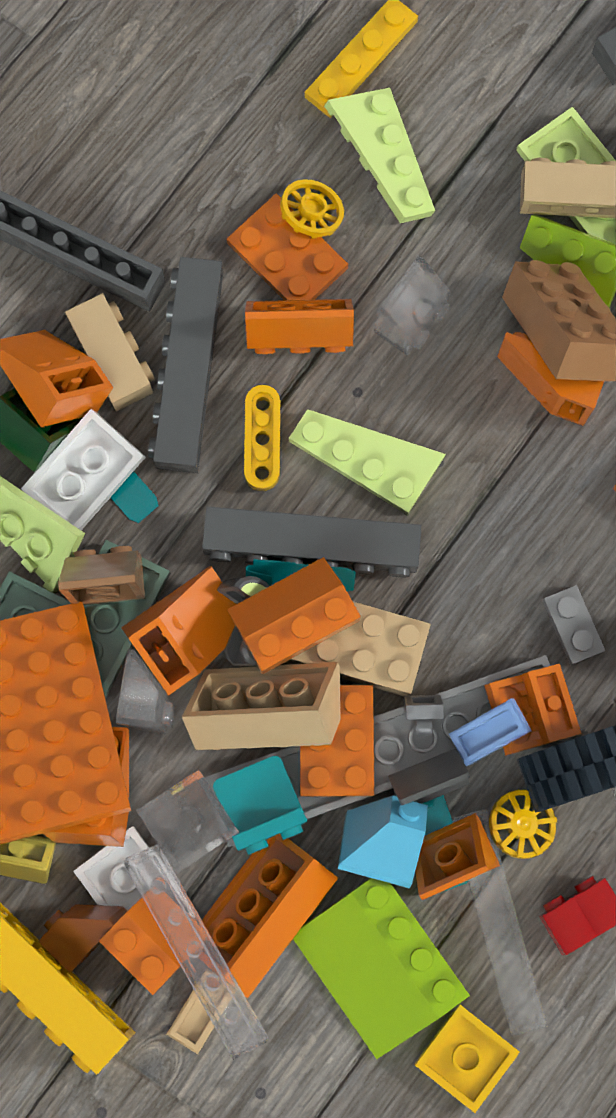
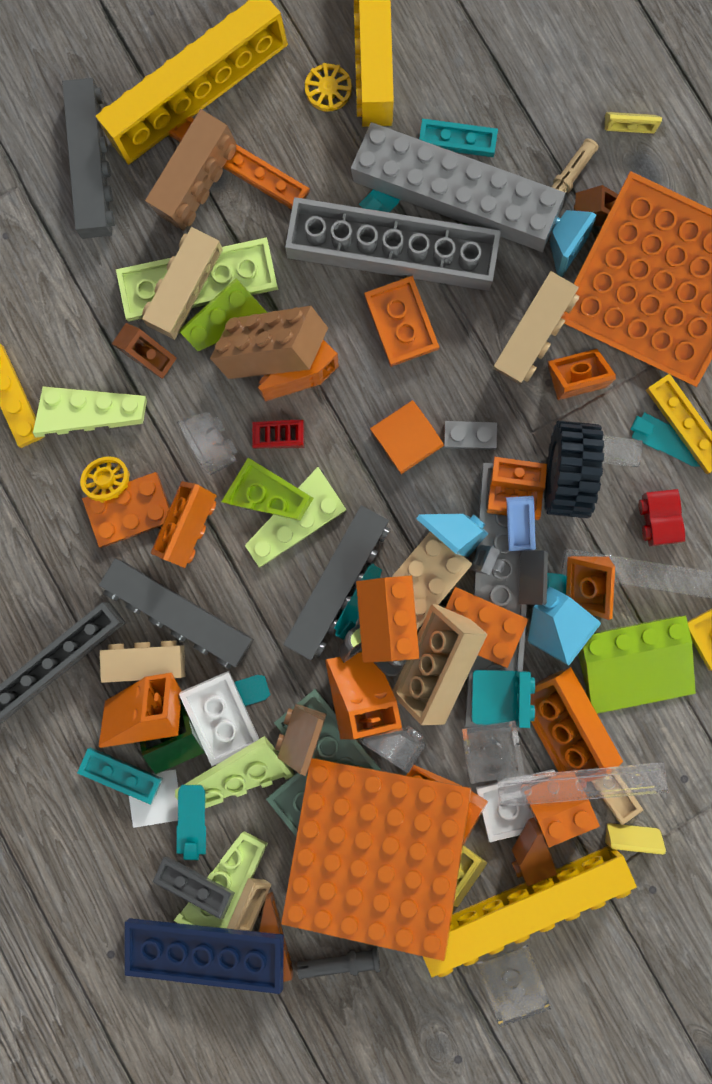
camera: 60 degrees left, 5 degrees up
(156, 1058) = (634, 838): none -> light yellow slope
(258, 423) = (239, 581): yellow plate -> none
(384, 405) = (266, 492): none -> lime wing
(441, 656) = (456, 531): none -> medium azure slope
(476, 414) = (288, 443): none -> red slope
(489, 184) = (144, 350): none -> dark orange slope
(521, 825) = (585, 531): yellow wheel -> none
(533, 546) = (407, 437): none -> orange slope

